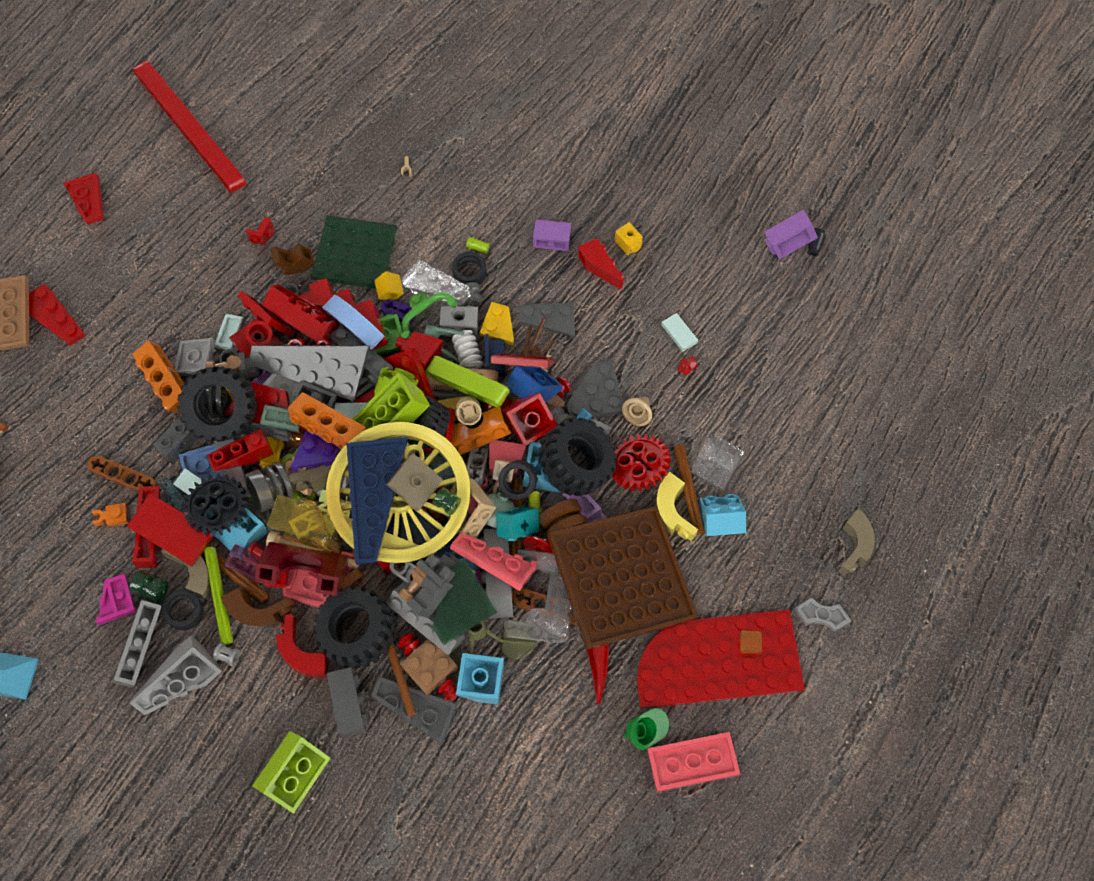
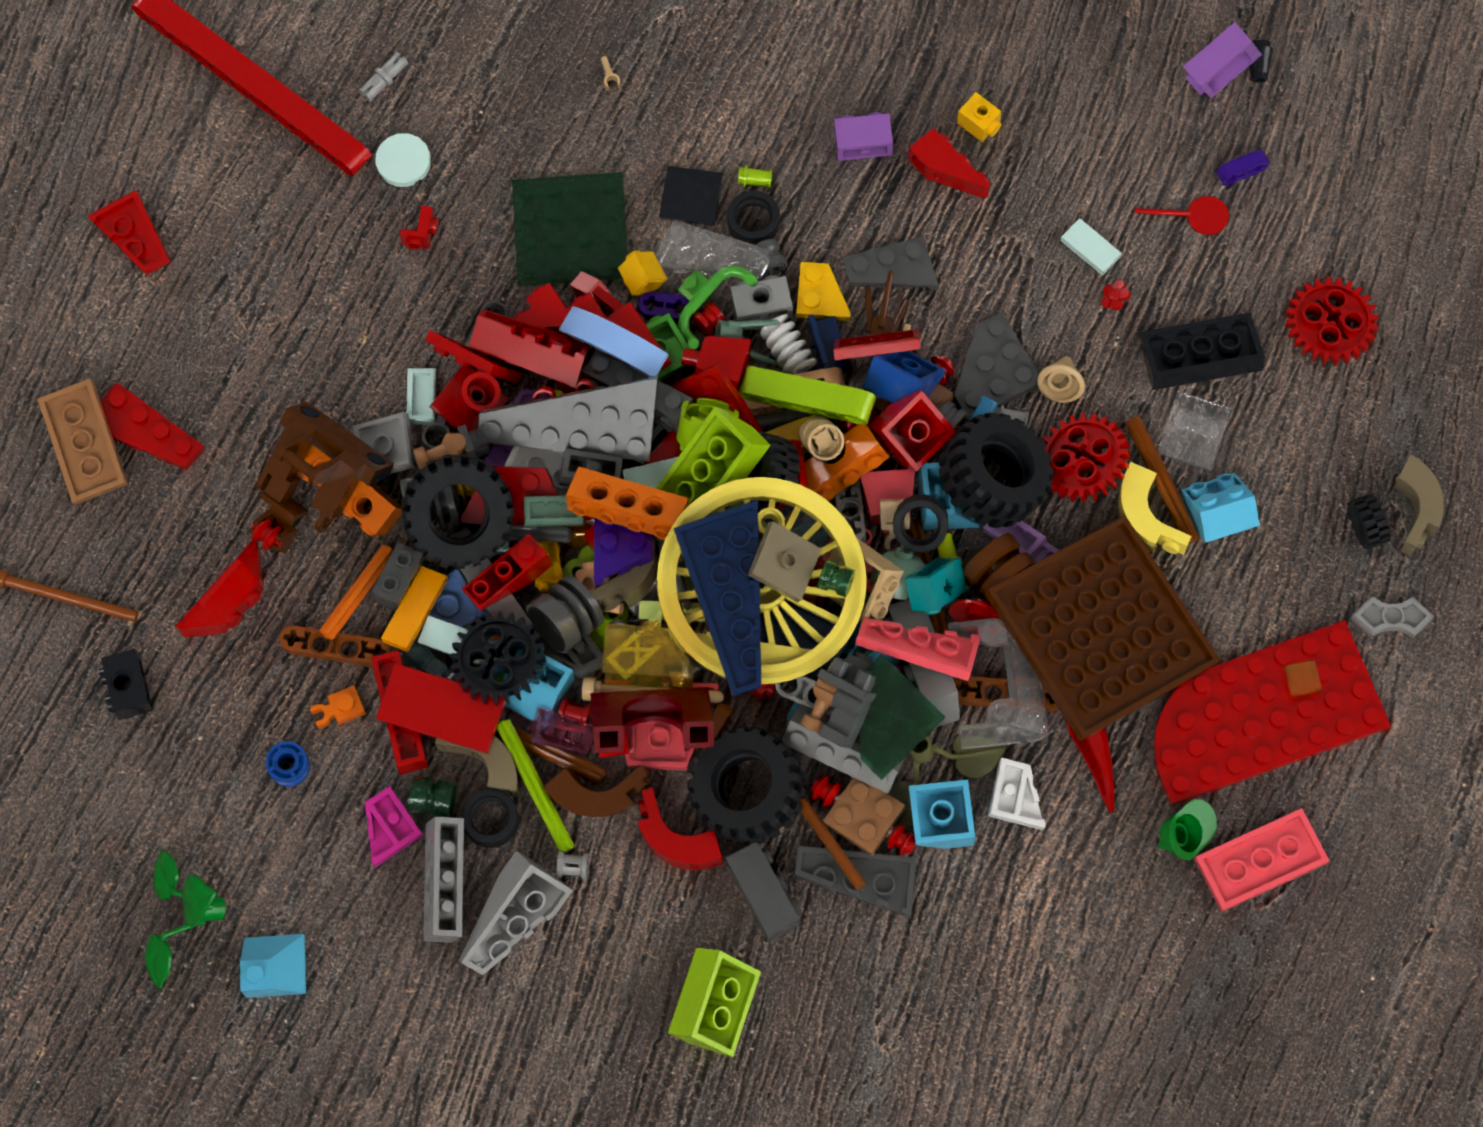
camera: 10 degrees left, 5 degrees up
(58, 538) = (294, 775): none -> blue wheel
(64, 426) = (227, 598): none -> red wedge
(143, 446) = (356, 593): none -> orange axle
(163, 360) = (350, 462): none -> reddish brown container
(177, 462) = (414, 609): none -> light orange tile
(265, 190) = (403, 160): none -> light aqua tile
(268, 139) = (383, 76): none -> light grey pin
(294, 260) = (486, 263): reddish brown brick -> none
(356, 289) = (586, 283): none -> red piece
(420, 323) = (707, 319): none -> red wheel
(434, 248) = (691, 195): none -> black slope
(536, 677) = (1014, 795): none -> white wing
(735, 412) = (1202, 351): none -> black slope
(758, 328) = (1205, 214): none -> red piece
(789, 304) = (1243, 167): none -> dark purple beam
(809, 416) = (1352, 309): none -> red gear
(820, 546) = (1368, 521): none -> black tyre

